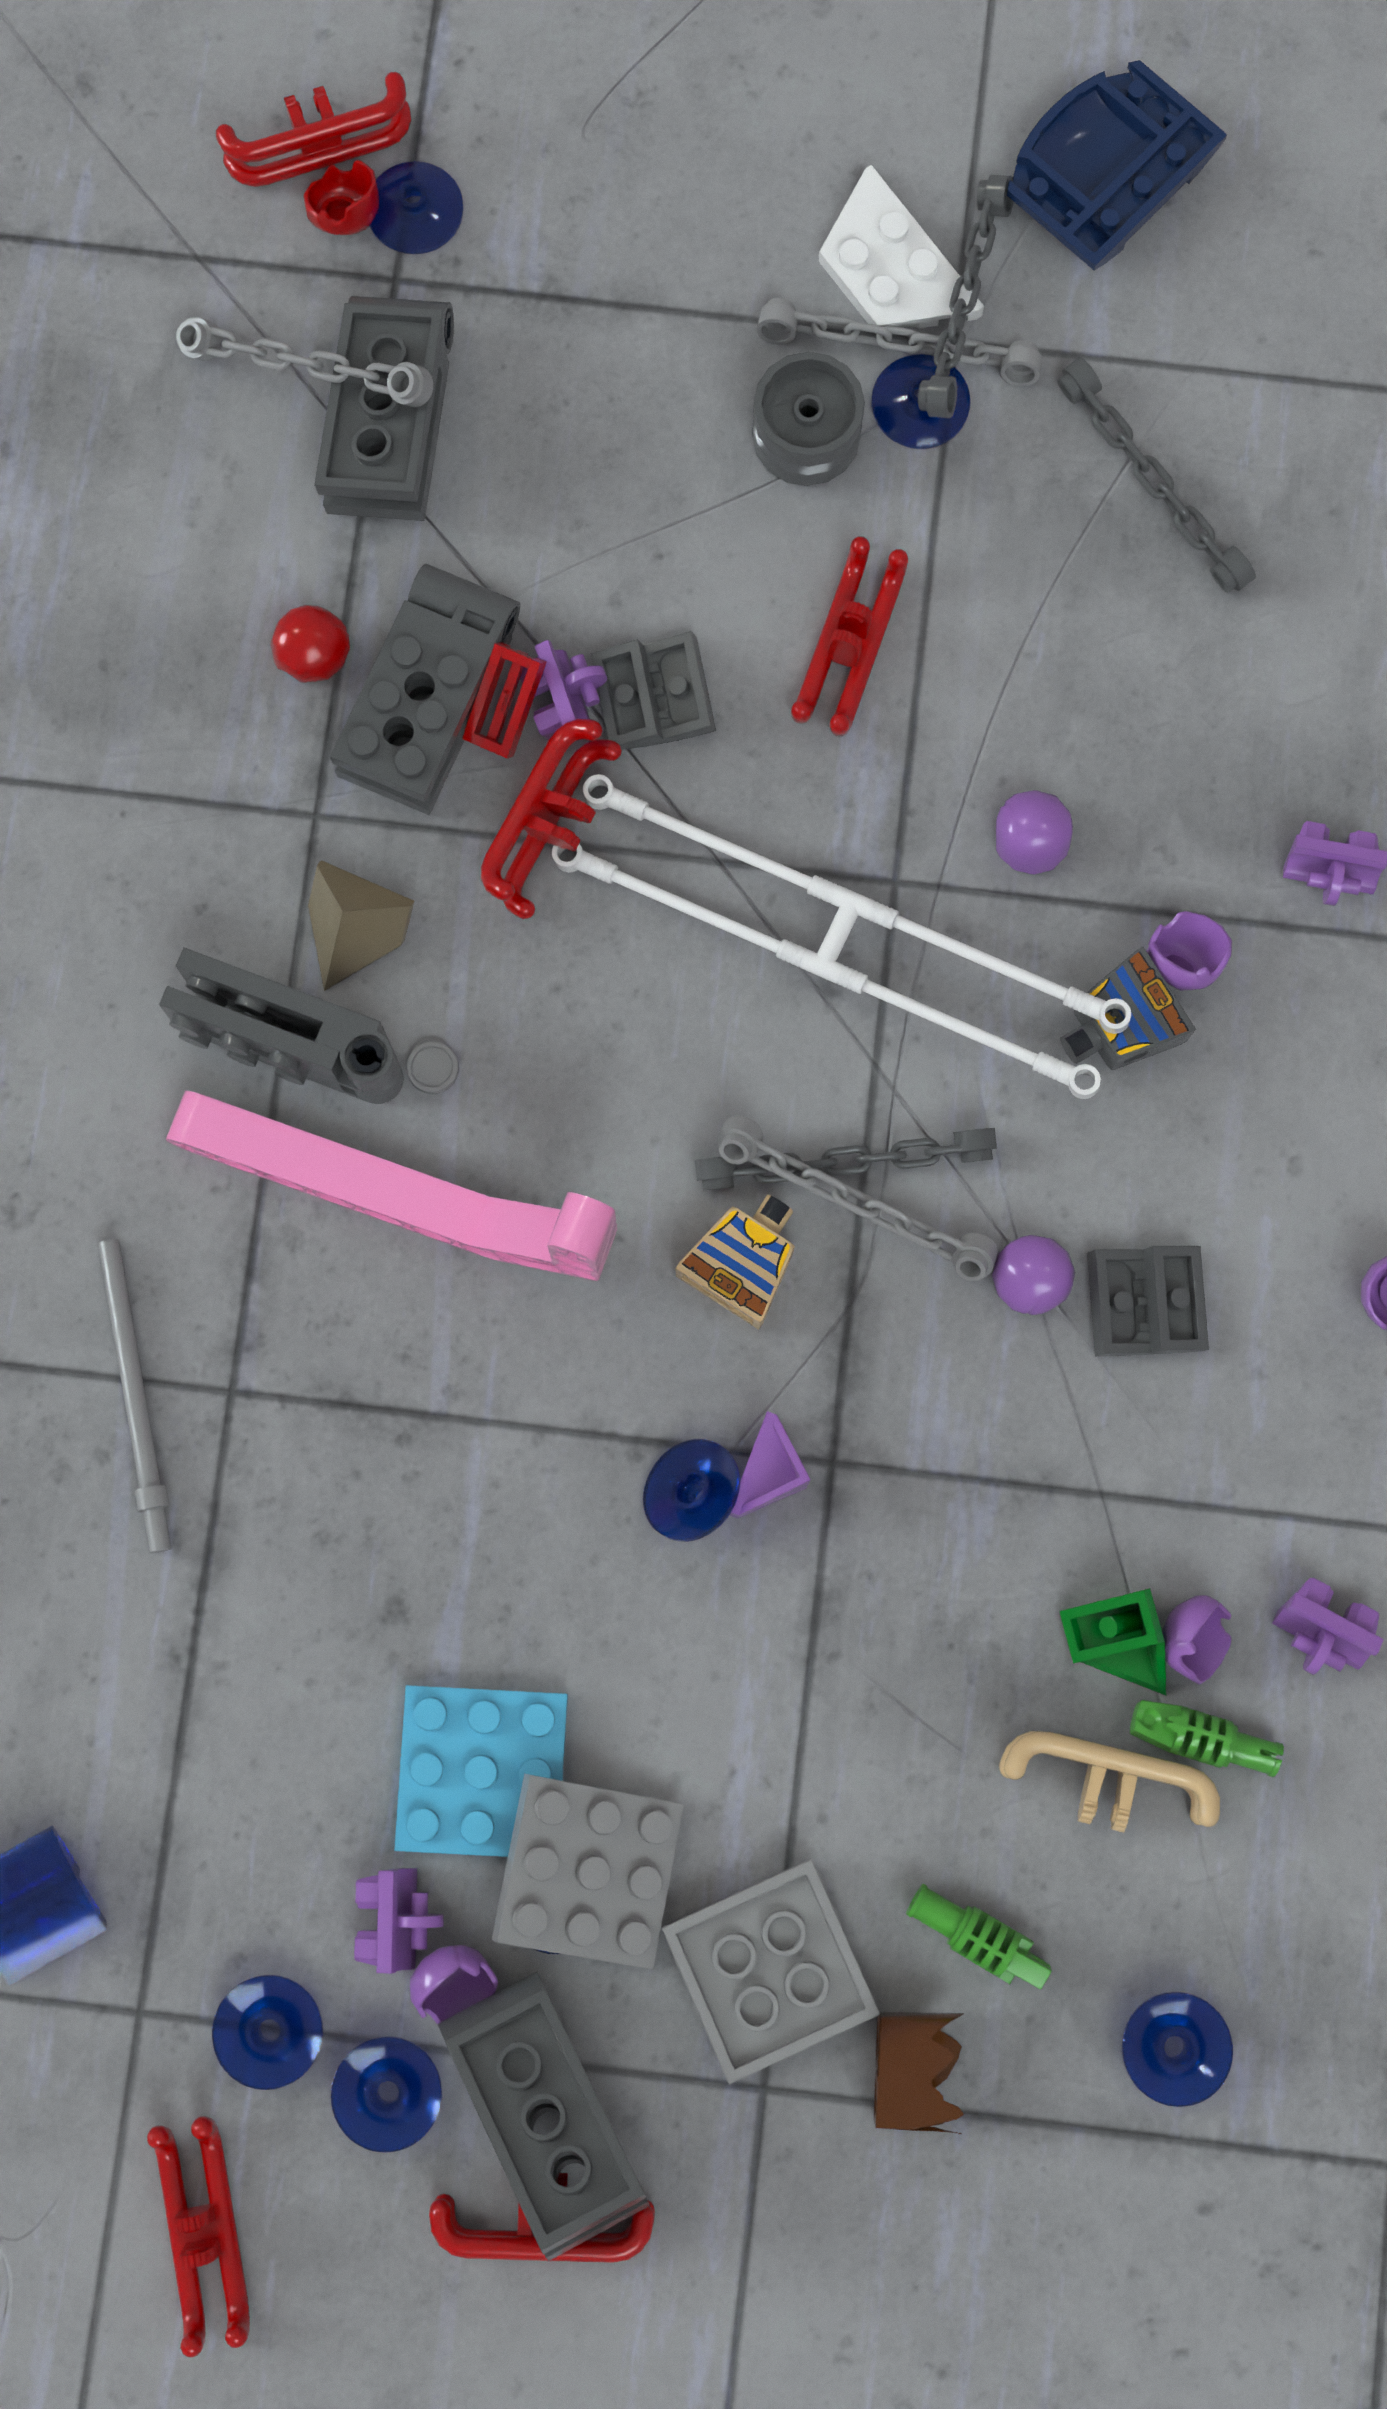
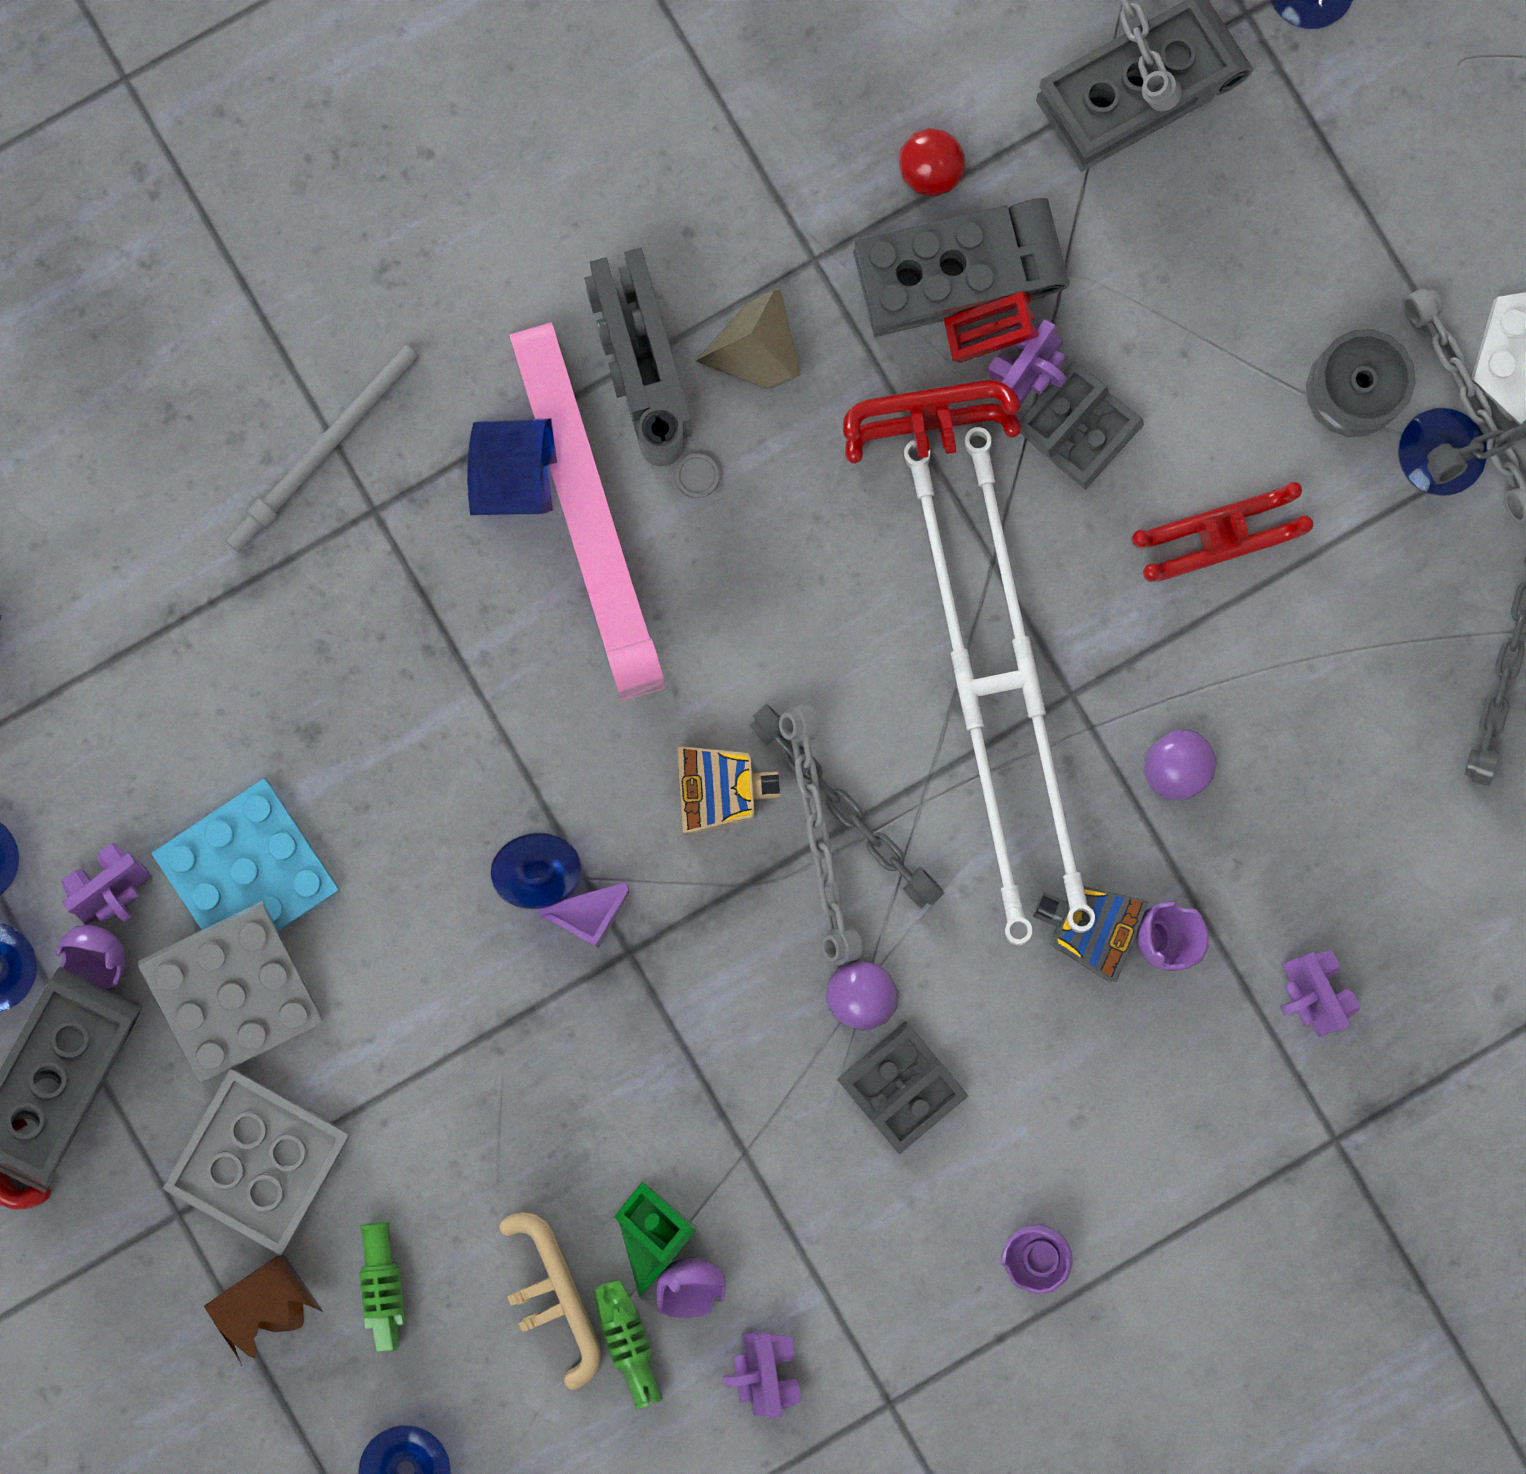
camera: 45 degrees right, 5 degrees up
(291, 1228) = (510, 467): none -> clear blue slope

